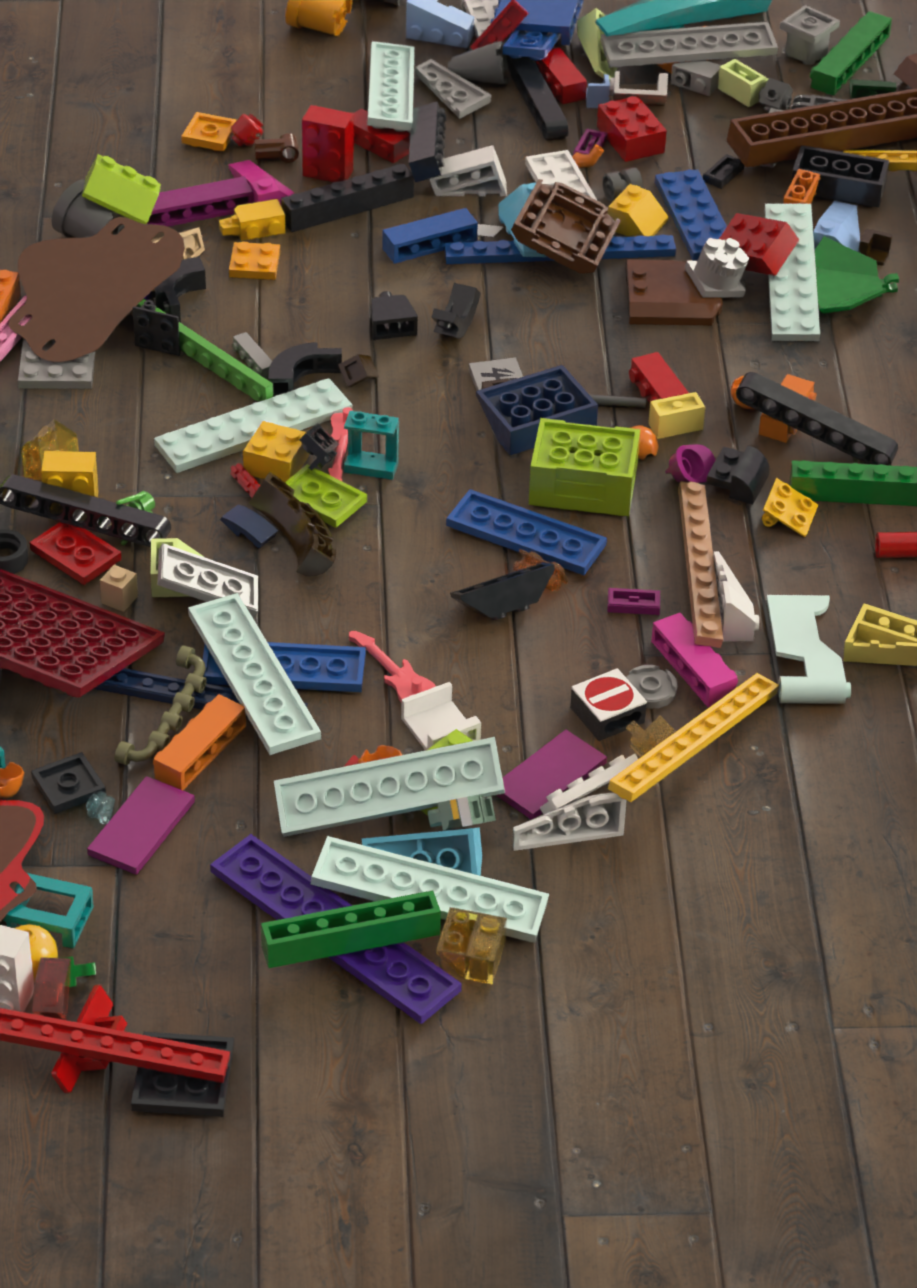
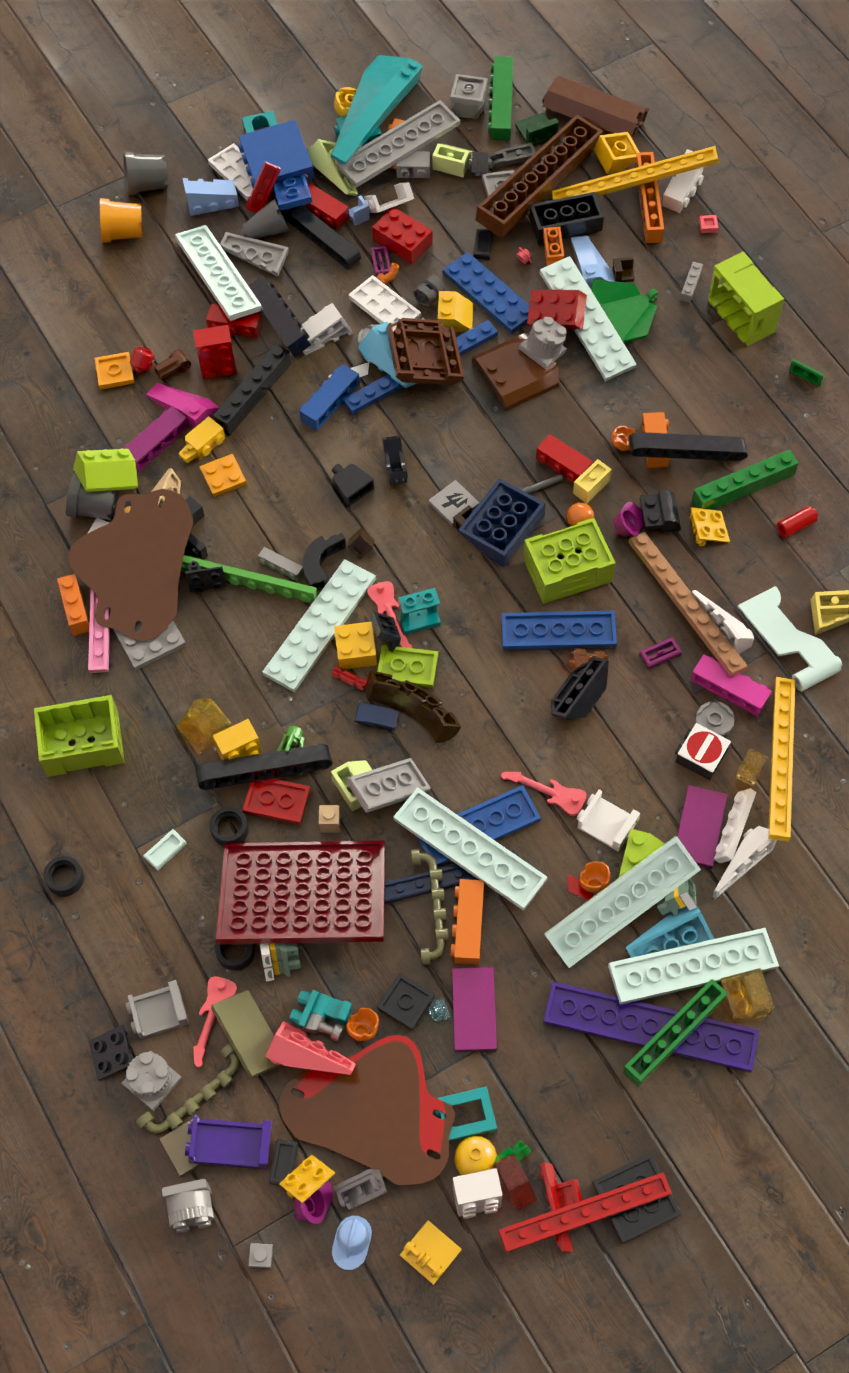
camera: 25 degrees left, 20 degrees up
(762, 194) = (524, 255): none -> coral plate

